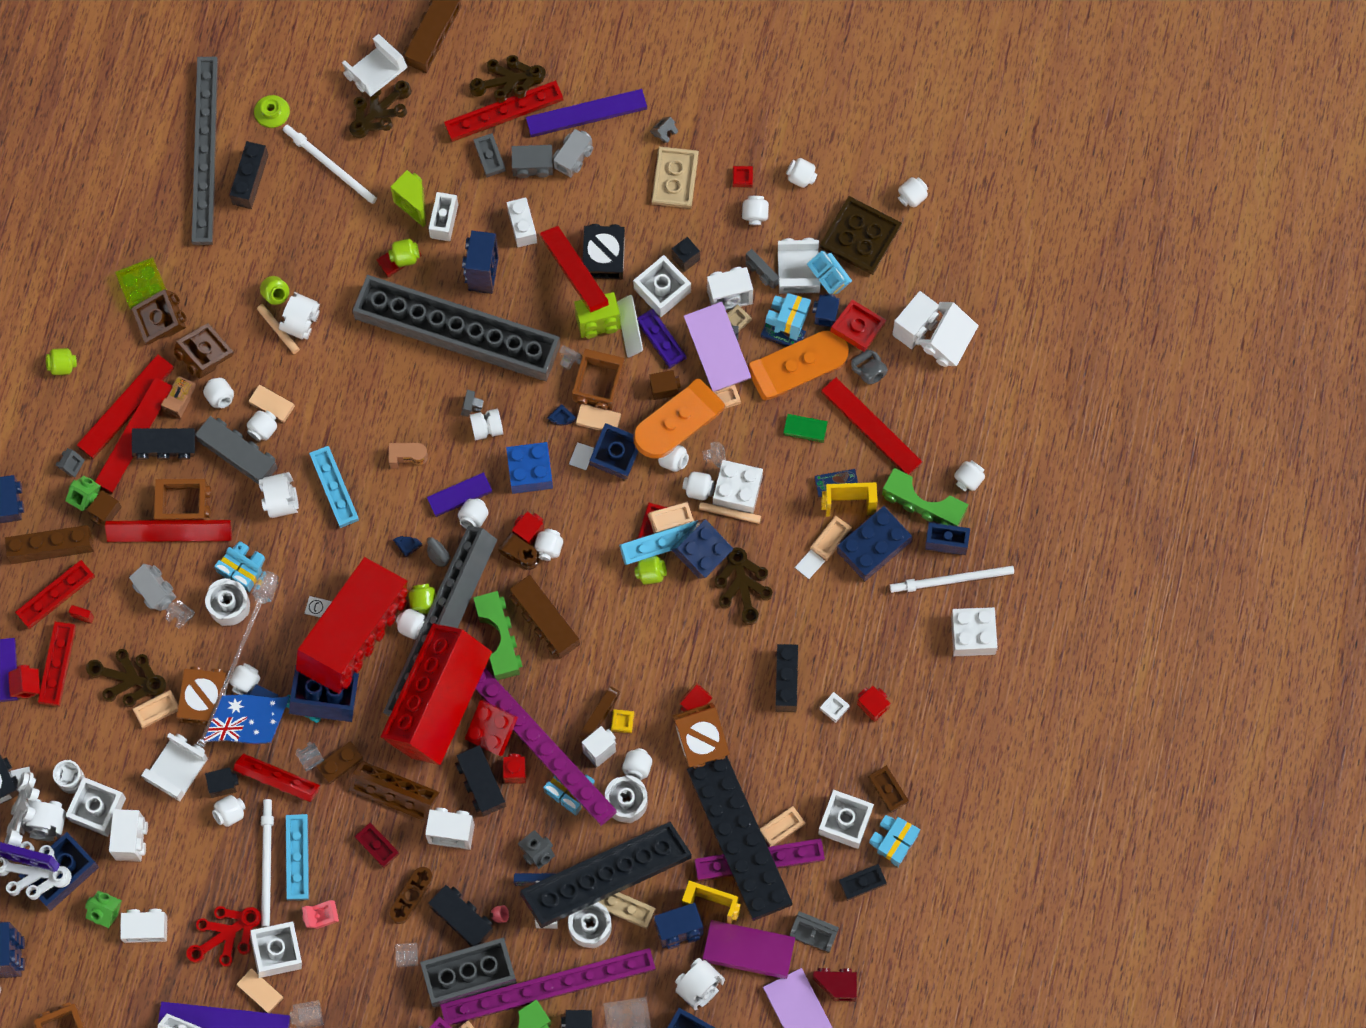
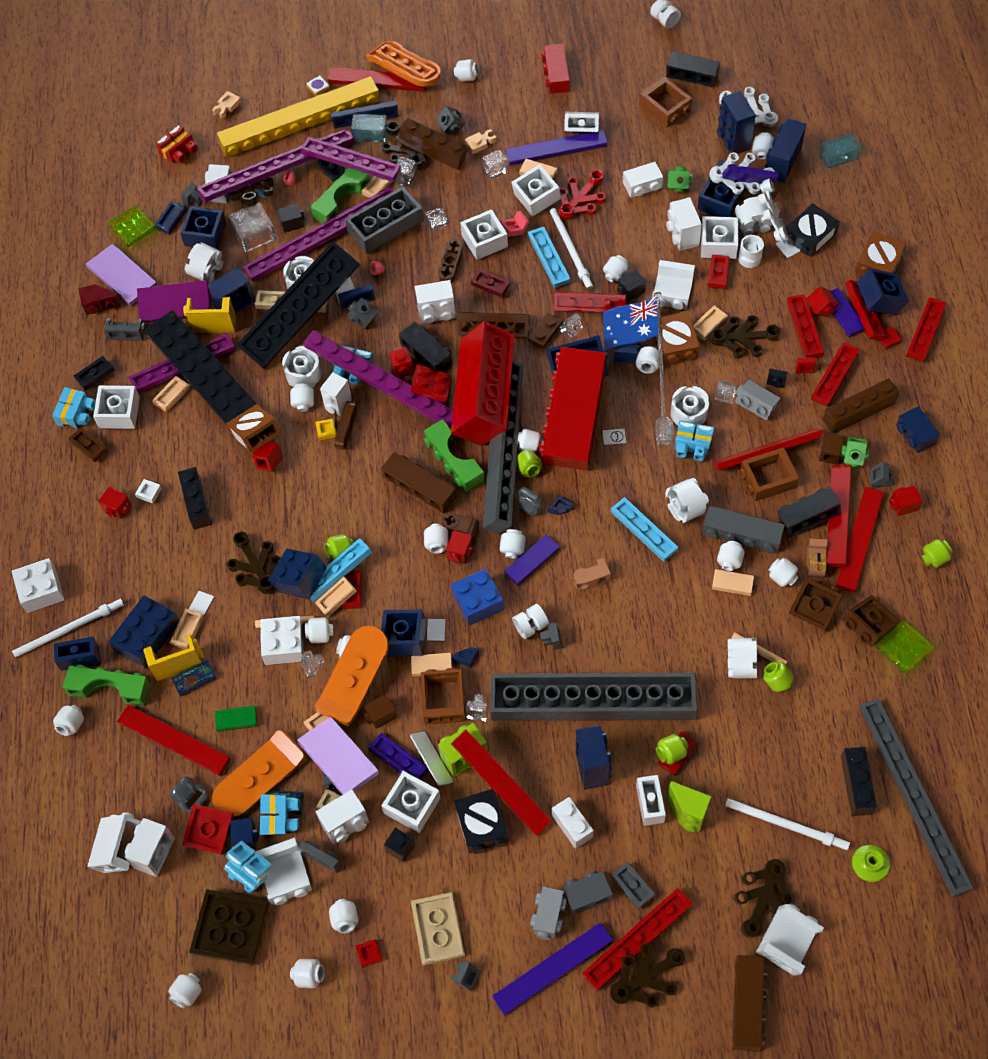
camera: 165 degrees right, 10 degrees down
(60, 426) = (905, 500): none -> red brick
(116, 767) = (718, 271): none -> red plate
(119, 608) = (776, 378): none -> black plate
(360, 908) = (484, 234): none -> white brick
(461, 916) = (405, 255): black brick -> none

